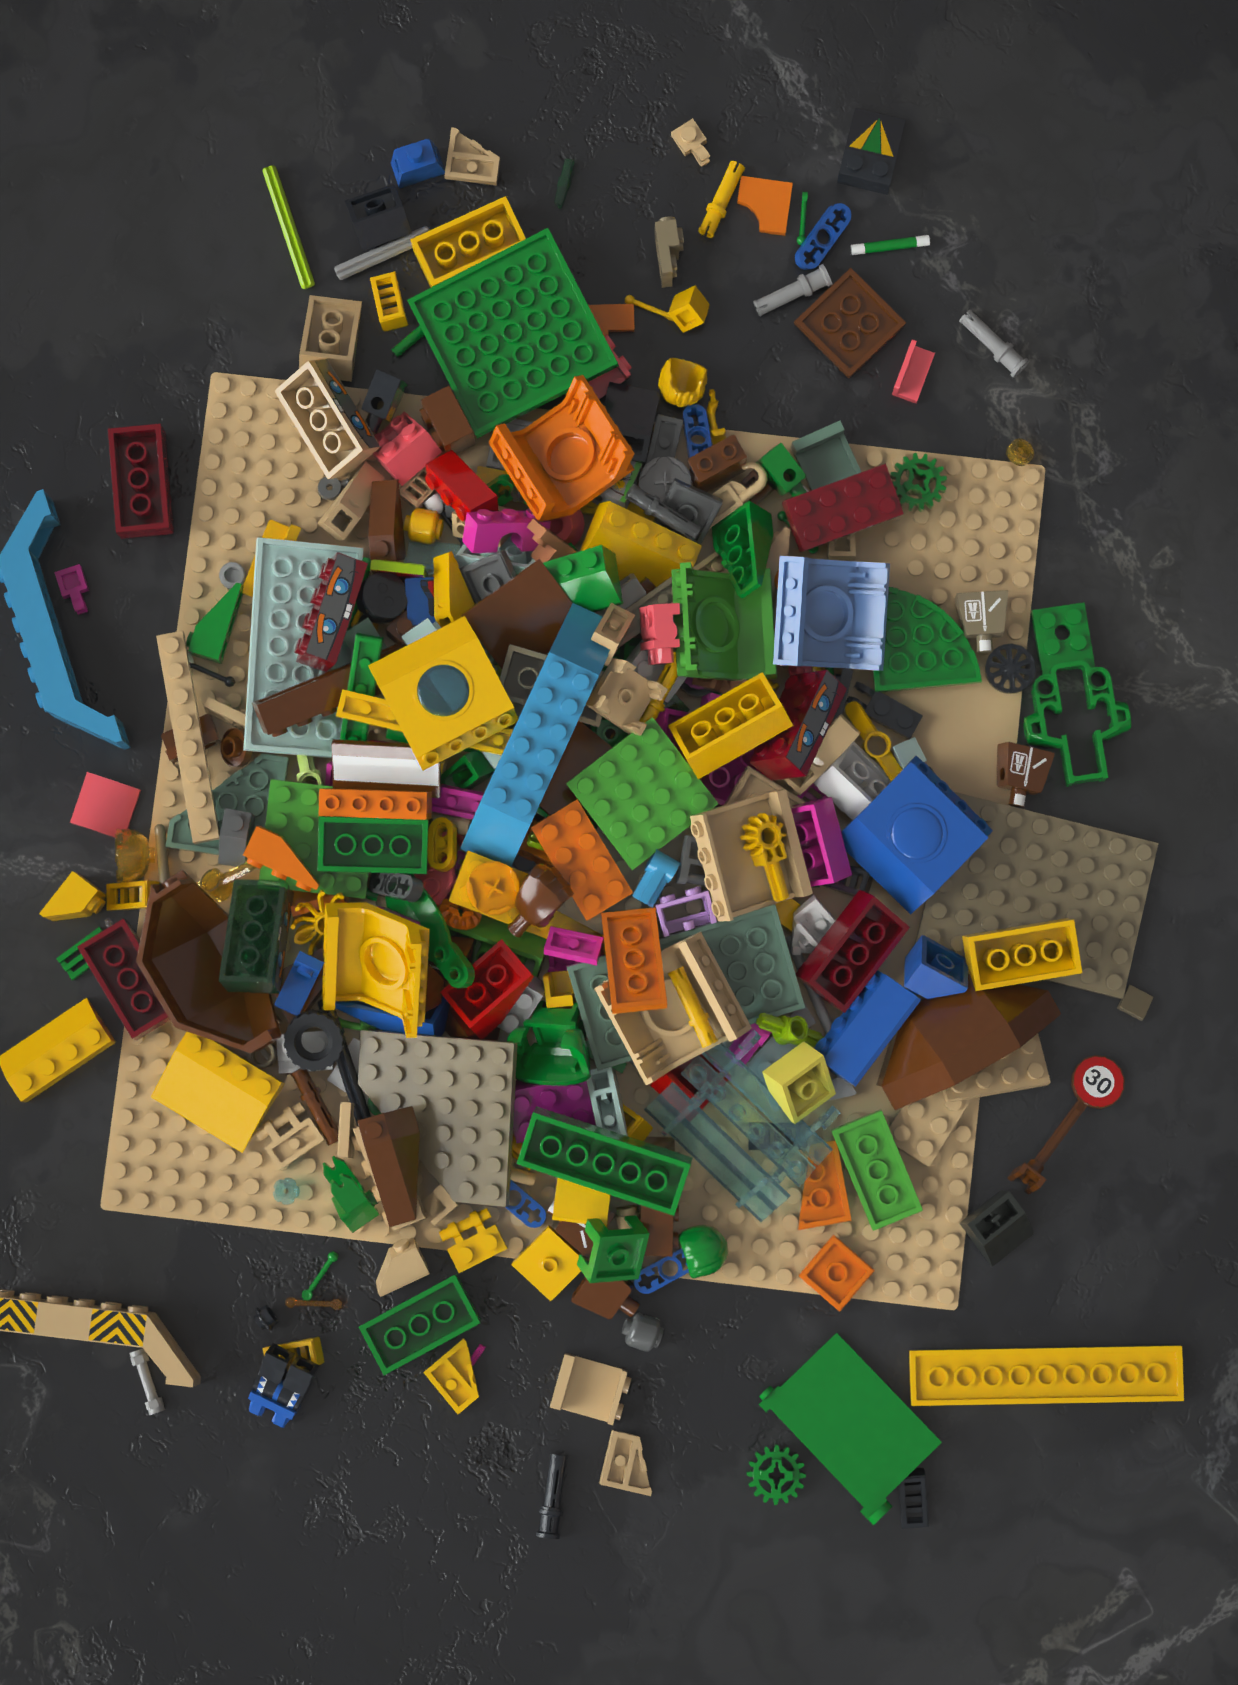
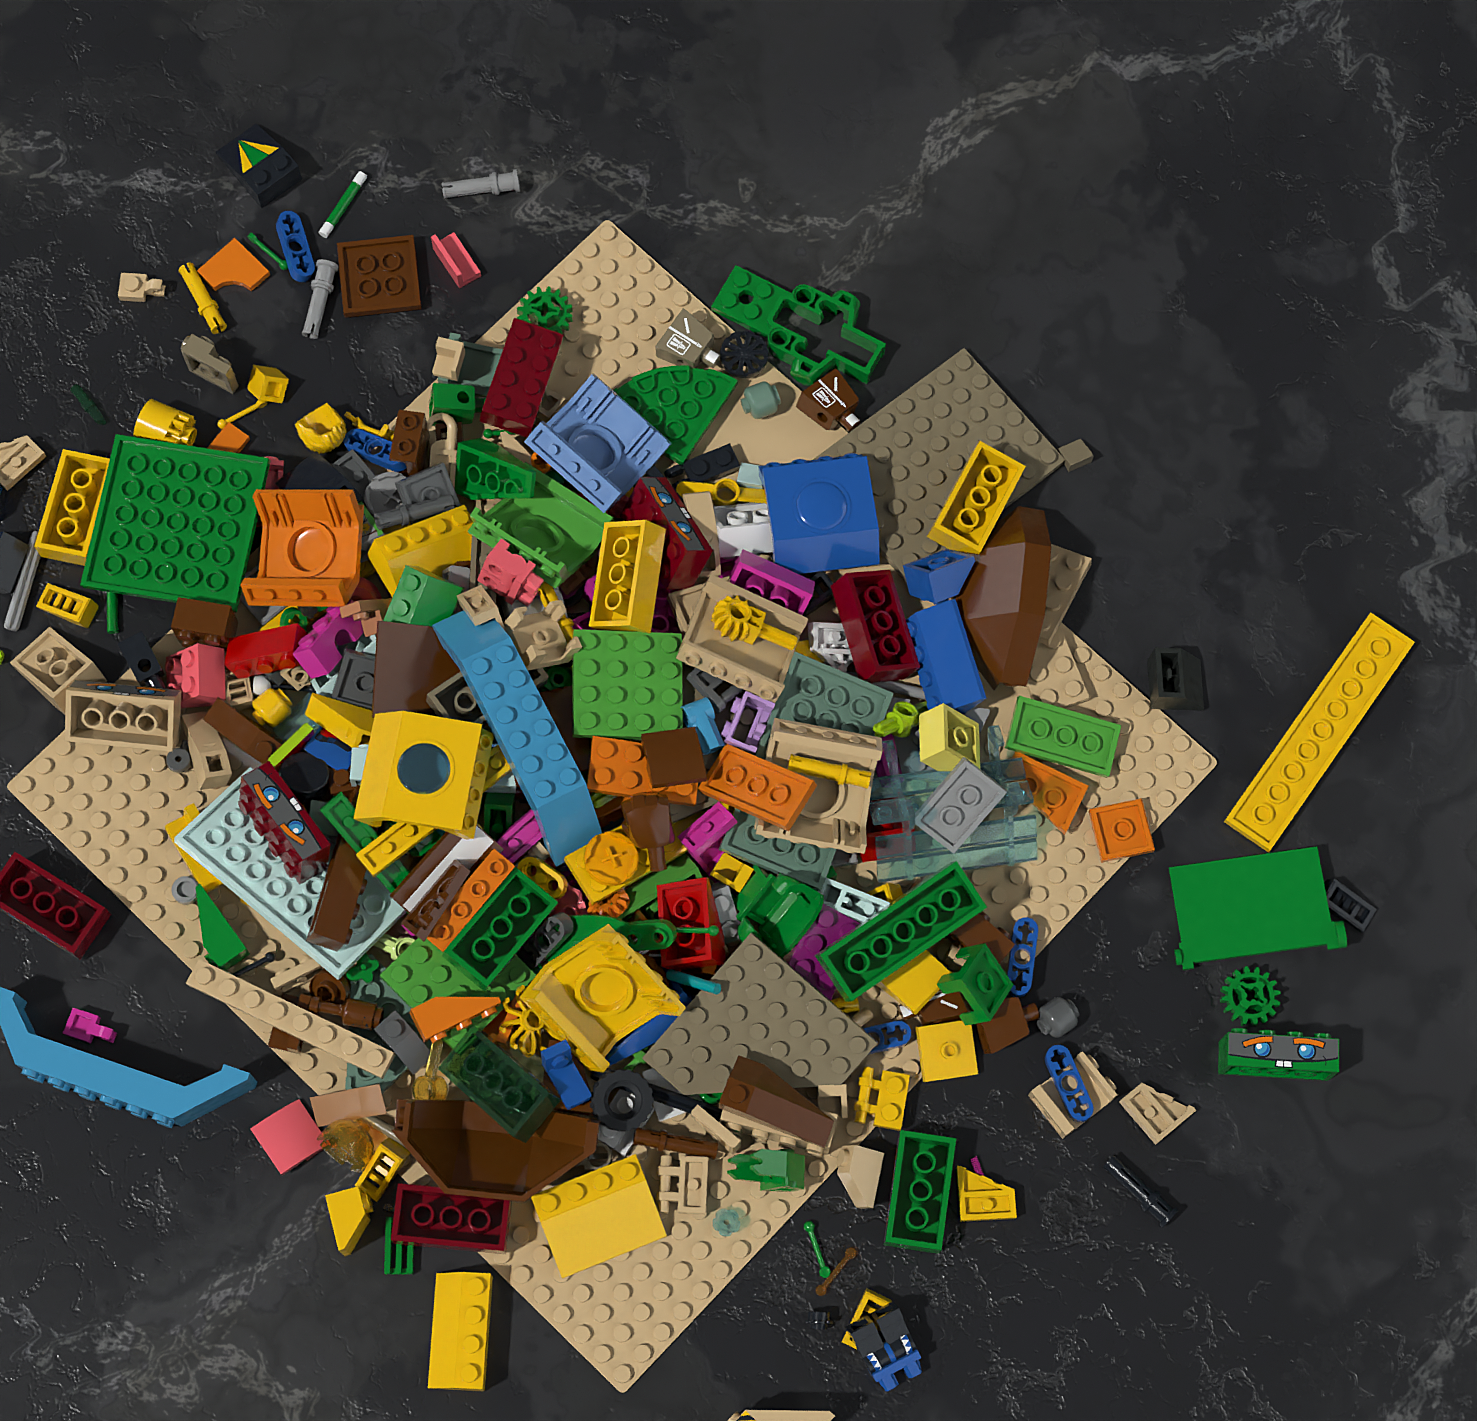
camera: 60 degrees left, 10 degrees down
(159, 832) = (348, 1104): none -> medium nougat sticker
(230, 781) = (354, 1012): none -> reddish brown piece
(270, 762) = (363, 970): none -> green piece
(353, 779) = (435, 901): none -> reddish brown wing
(446, 1028) = (693, 981): none -> teal piece
(492, 1012) = (712, 930): none -> green hinge
(588, 259) = (165, 424): none -> yellow gear
(607, 876) = (673, 757): none -> reddish brown slope
(607, 1377) = (1054, 1067): none -> blue beam
(703, 1249) = (1028, 915): green piece -> none
(741, 1533) = (1278, 1055): none -> brick
(743, 1131) = (959, 805): none -> light grey plate
(813, 438) = (449, 358): none -> tan panel
(979, 712) = (760, 400): none -> sand green head
(1020, 452) = (581, 227): clear yellow tile -> none
(1097, 1085) = (1119, 528): piece -> none

